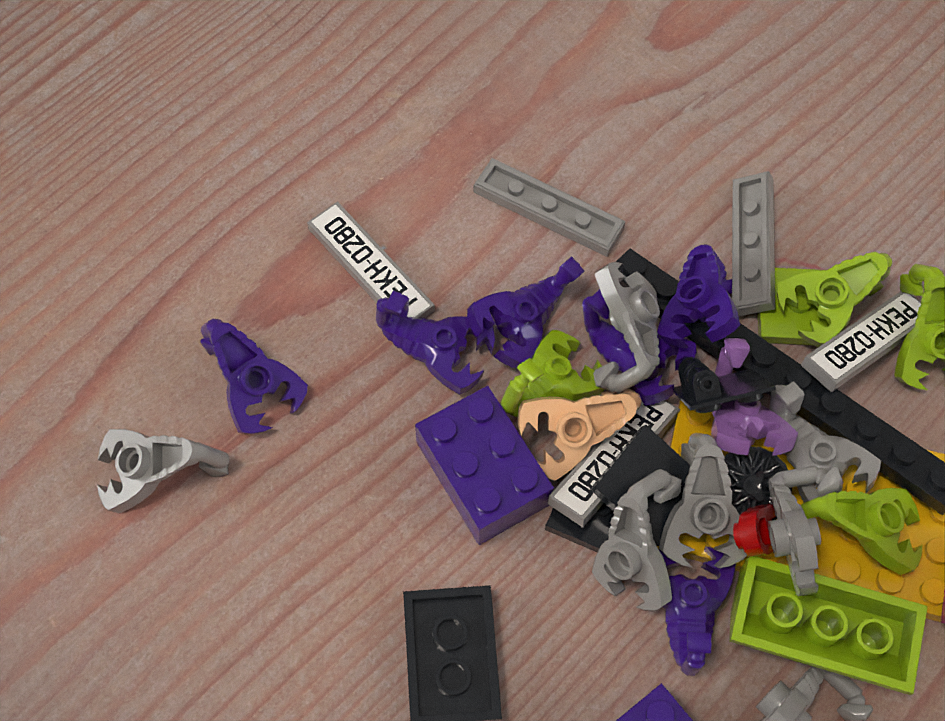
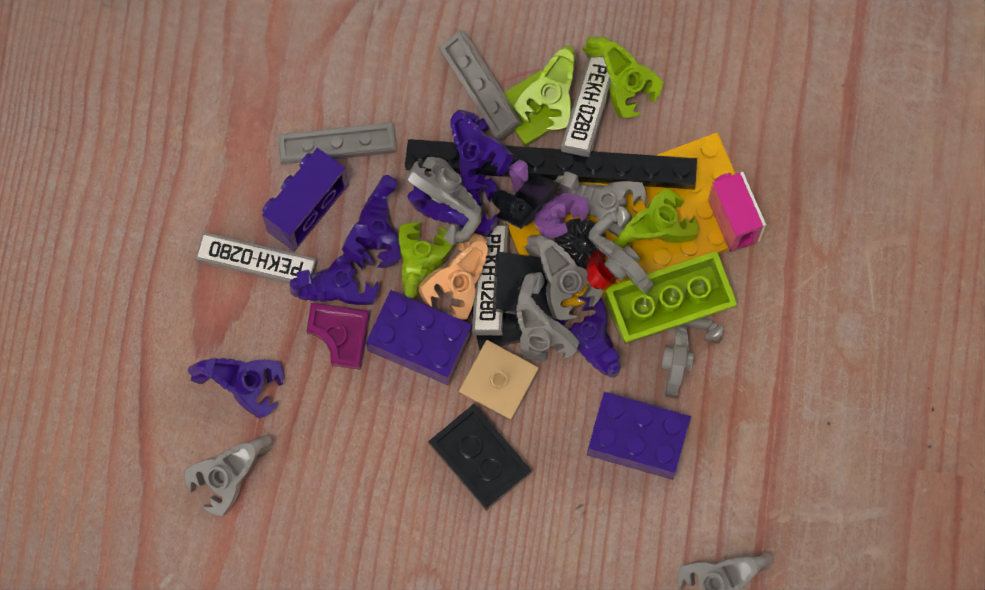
camera: 35 degrees left, 10 degrees up
(401, 401) = (341, 331): none -> magenta tile
(468, 231) = (304, 198): none -> dark purple brick
(541, 578) = (498, 380): none -> tan plate

